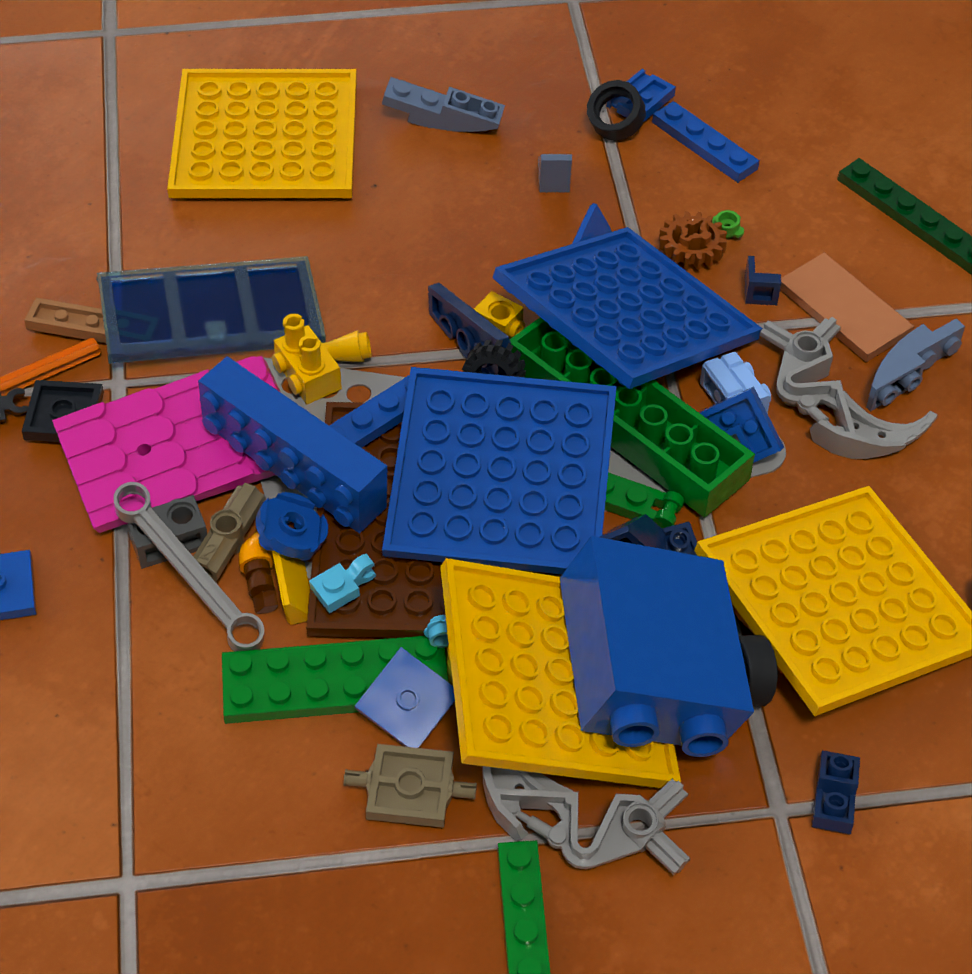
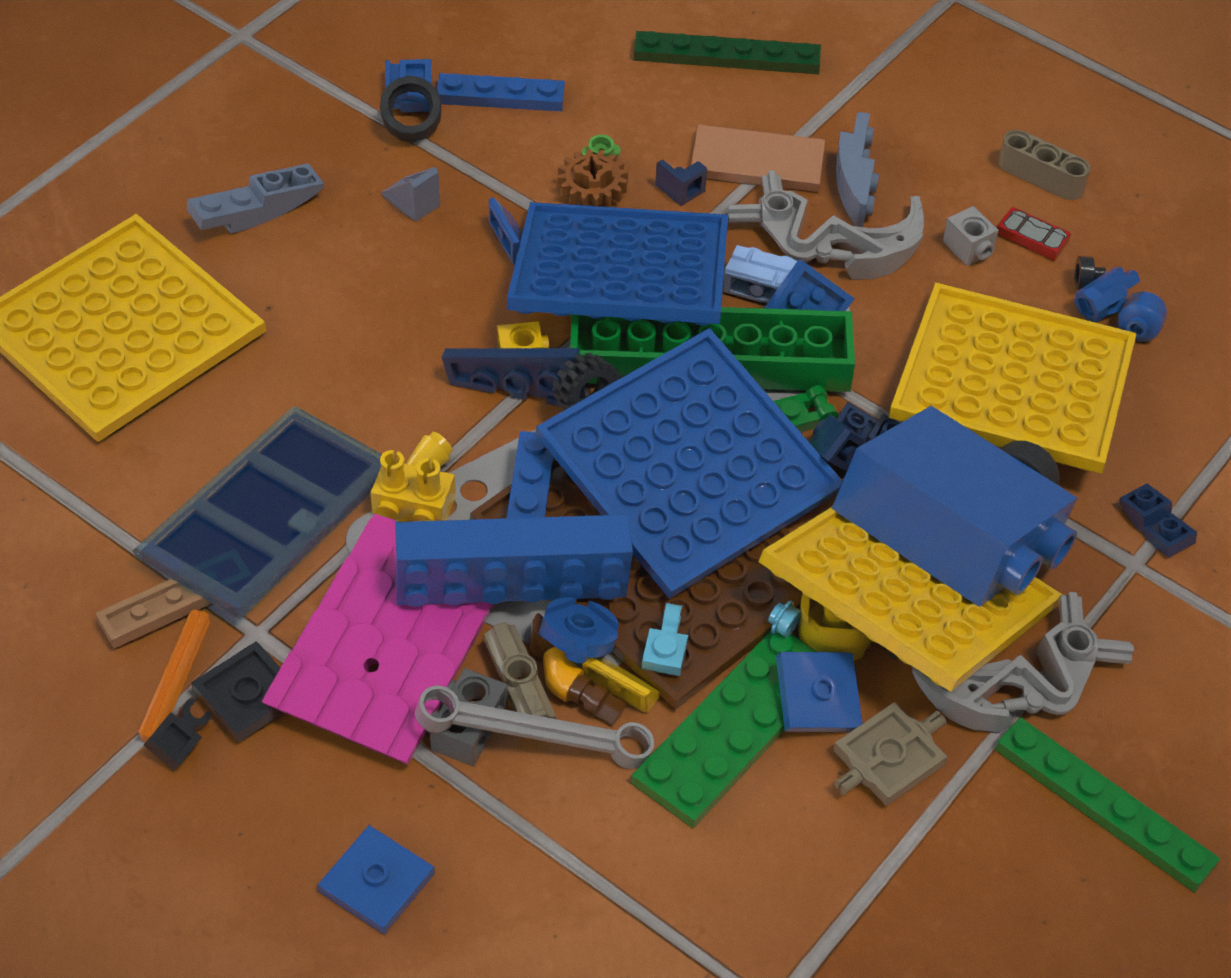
camera: 45 degrees left, 0 degrees up
(944, 472) = (970, 236): none -> light grey brick

